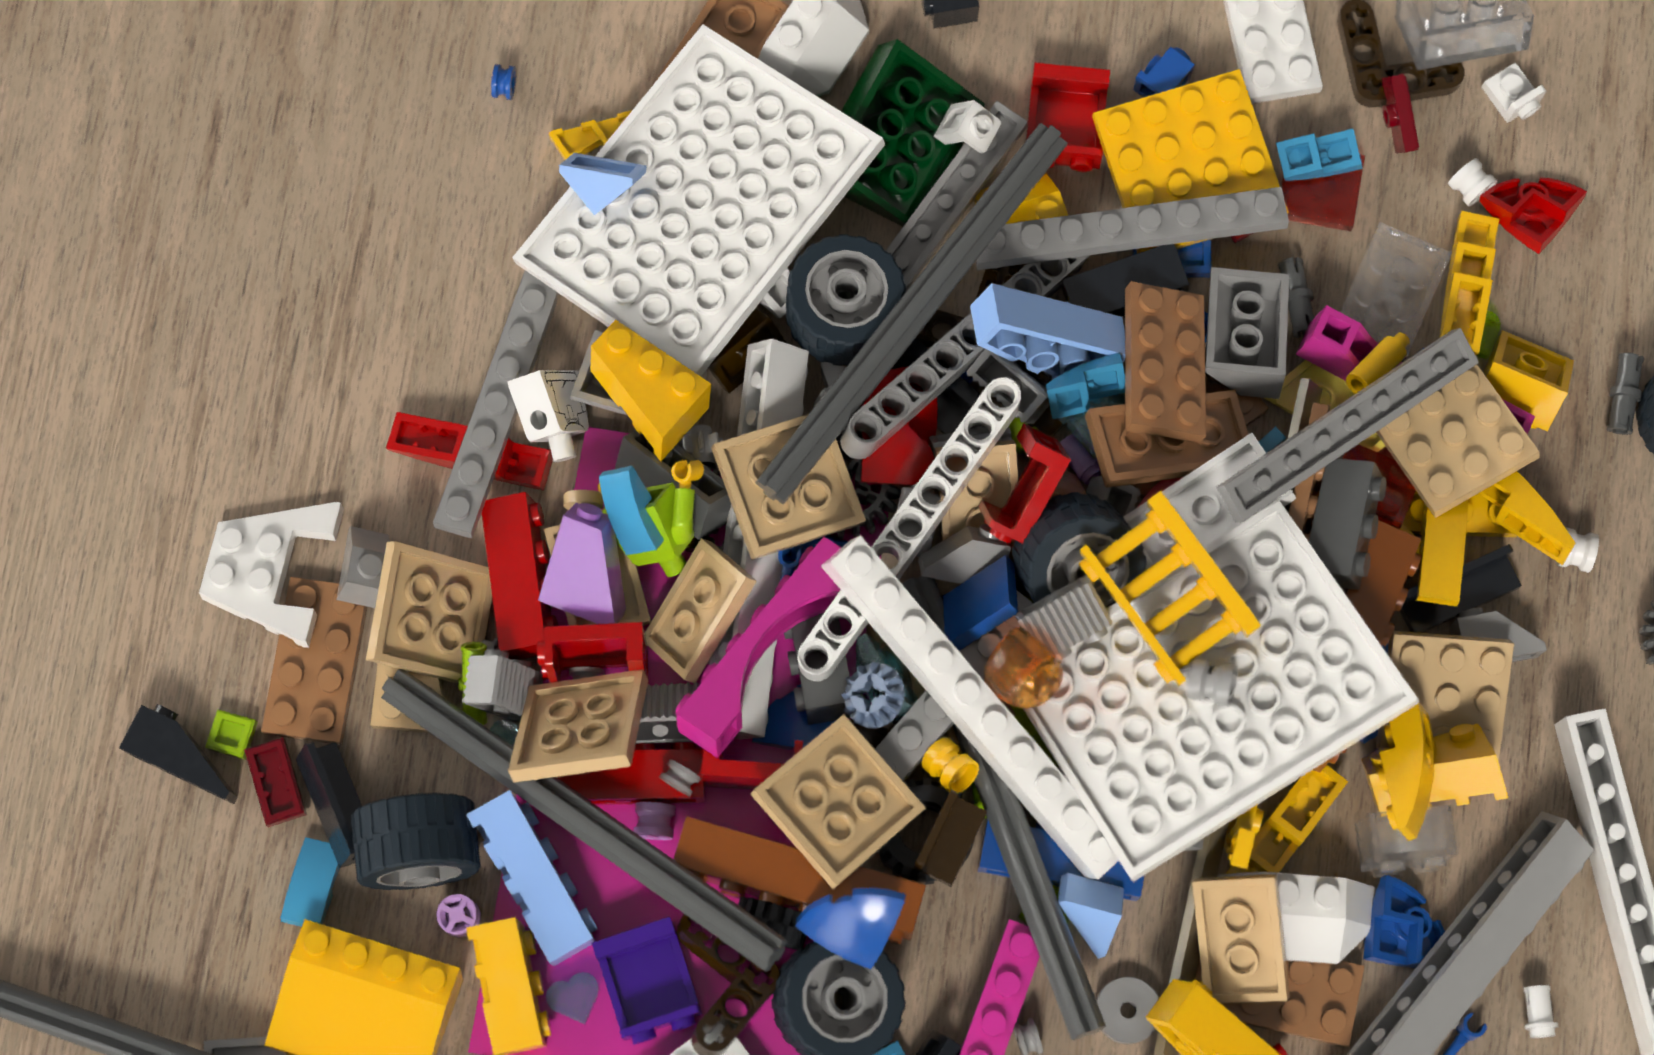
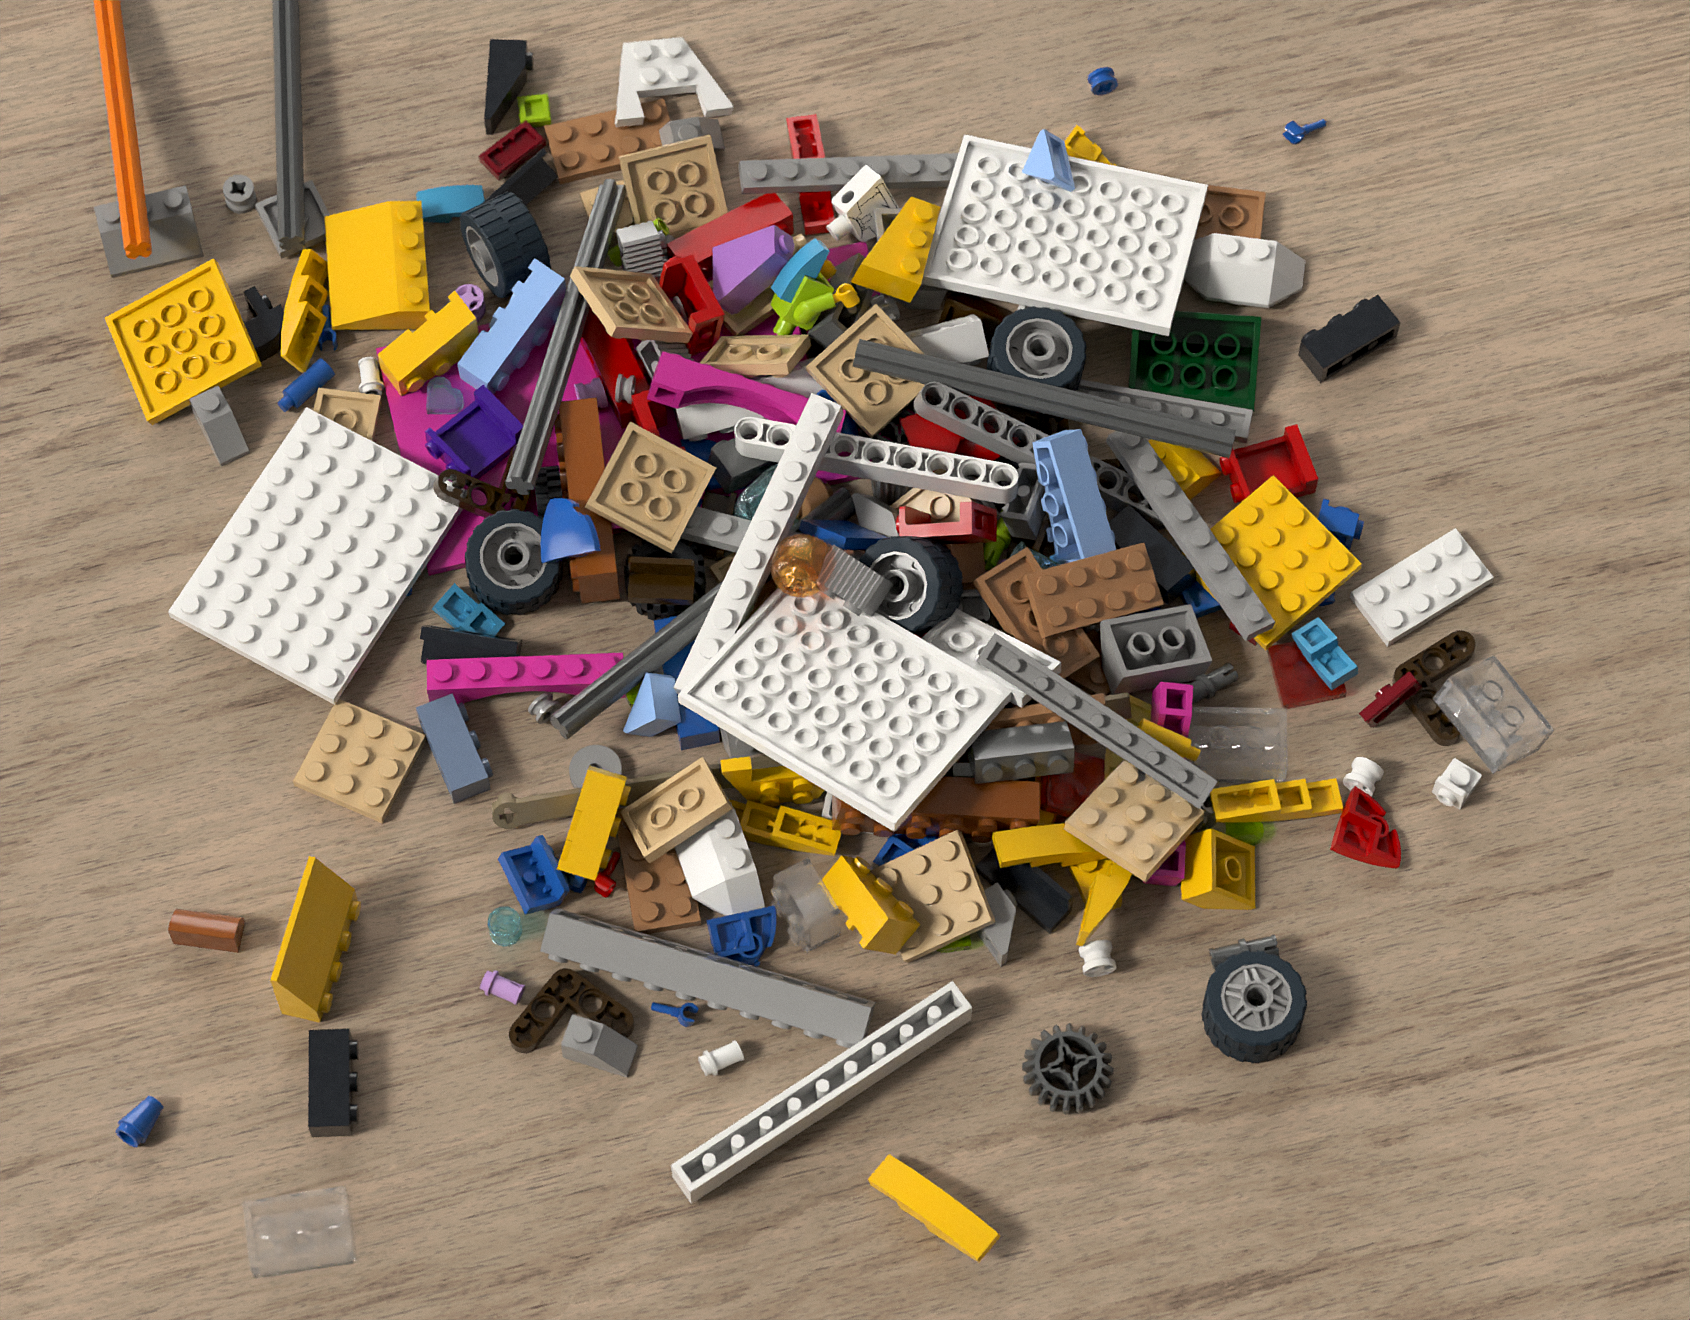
camera: 65 degrees right, 10 degrees down
(885, 706) = (731, 491): sand blue gear -> none
(954, 769) = (715, 563): yellow wheel -> none
(968, 124) = (1221, 399): white bracket -> none
(1093, 380) = (1046, 541): dark azure slope -> none
(1209, 585) = (918, 658): yellow fence -> none
(1212, 681) = (846, 693): light grey wheel -> none
(1408, 770) = (860, 866): yellow slope -> none

